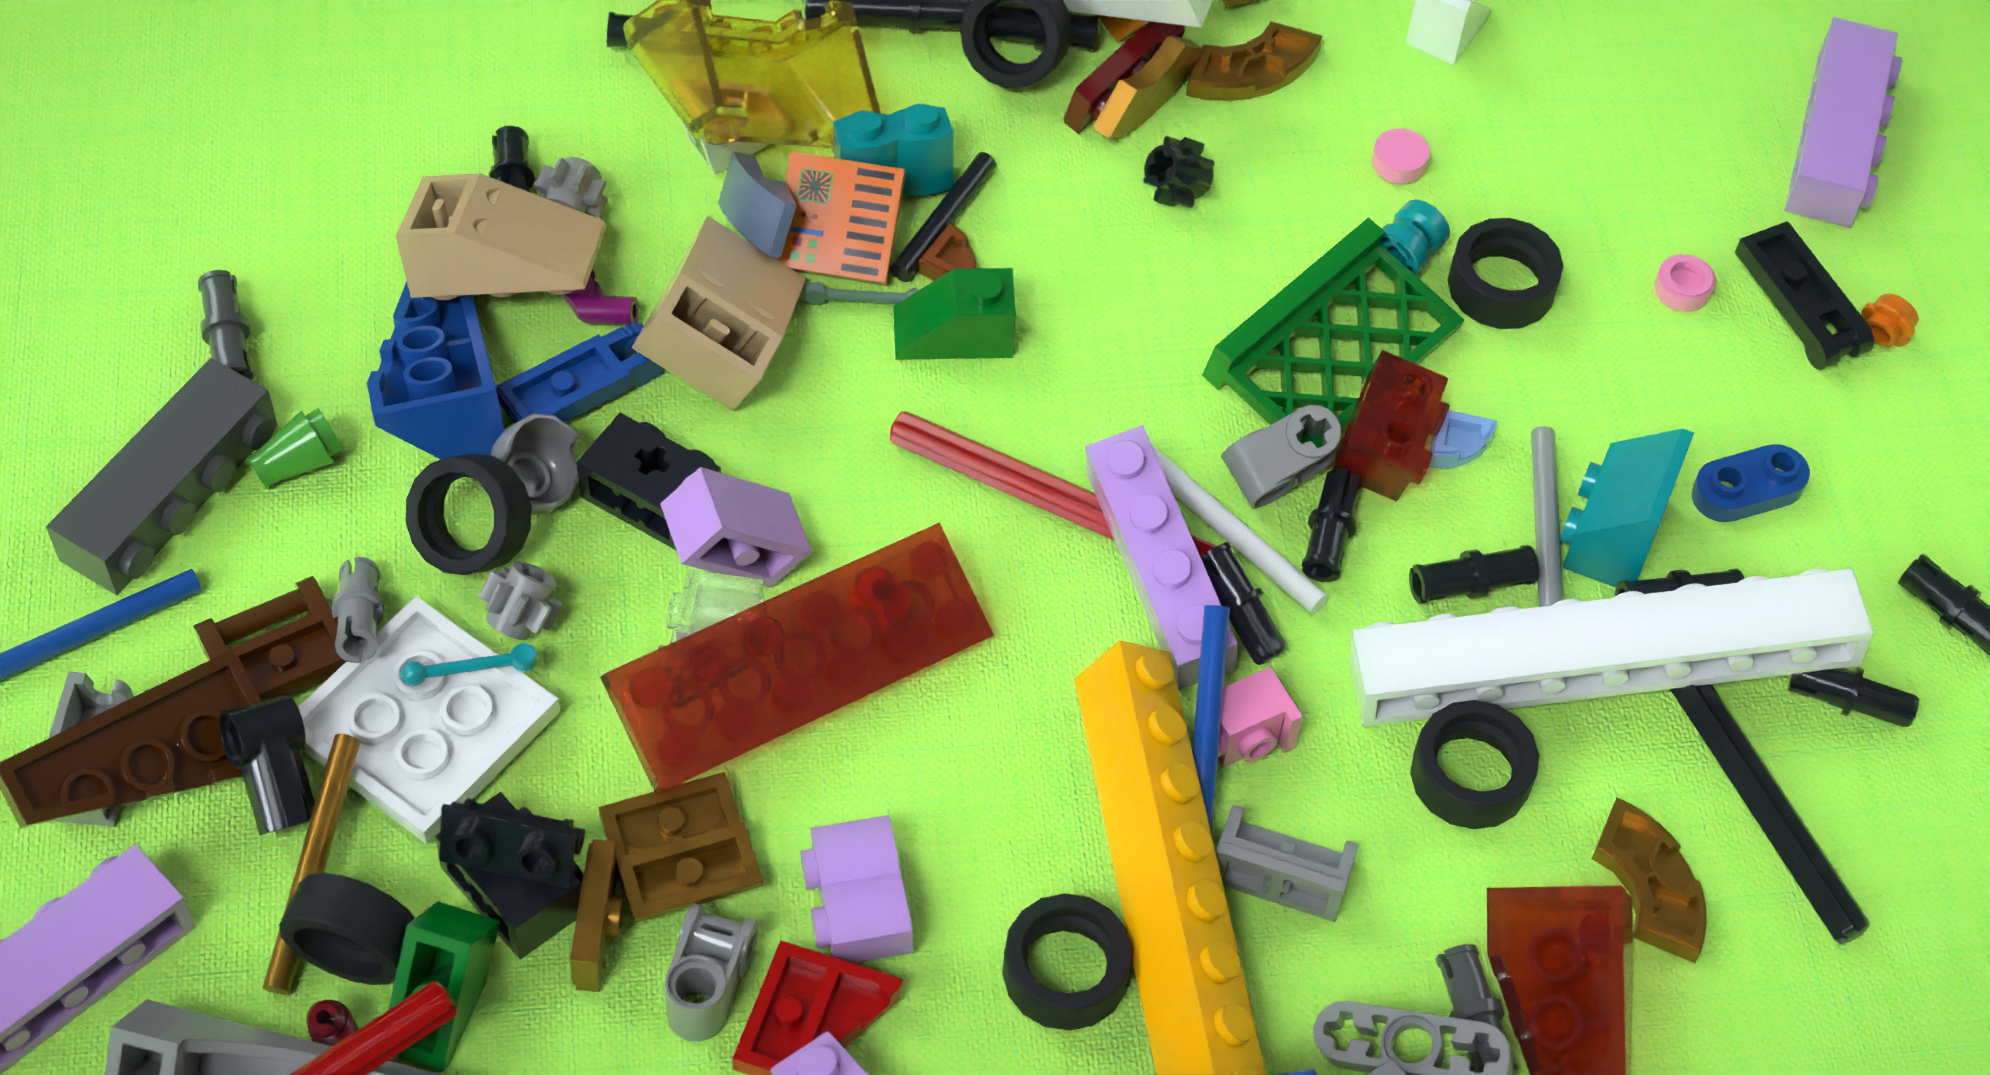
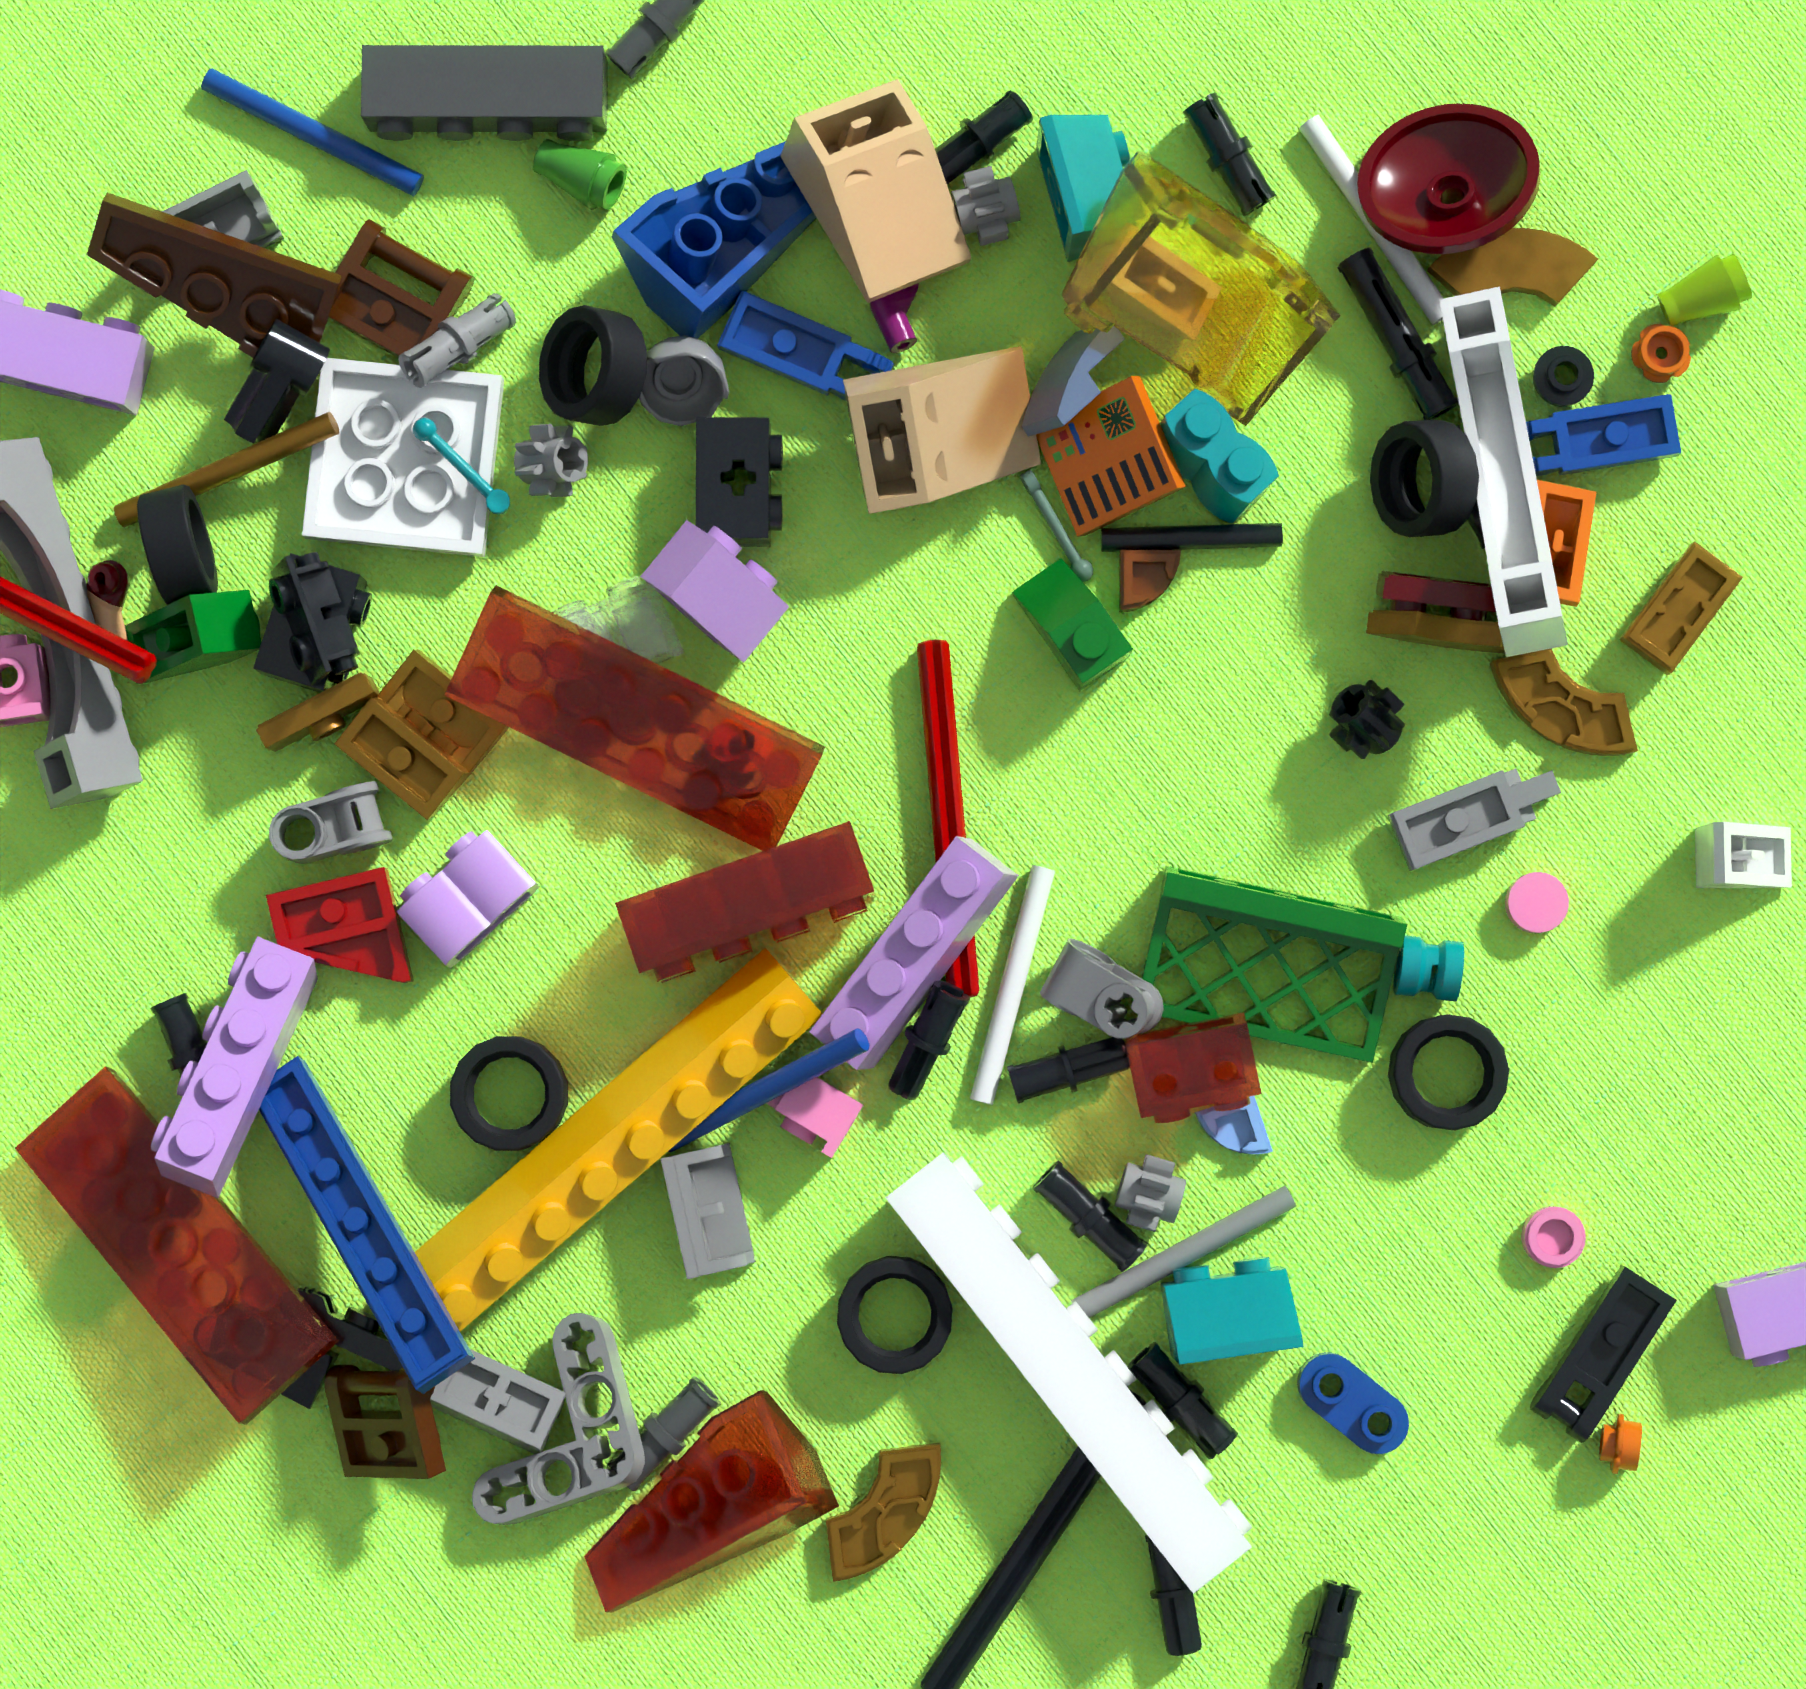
camera: 65 degrees right, 30 degrees up
(609, 124) = (1080, 169): none -> teal slope
(1028, 655) = (746, 901): none -> clear red brick
(1301, 157) = (1468, 815): none -> light grey hinge
(1482, 514) = (1150, 1193): none -> light grey gear

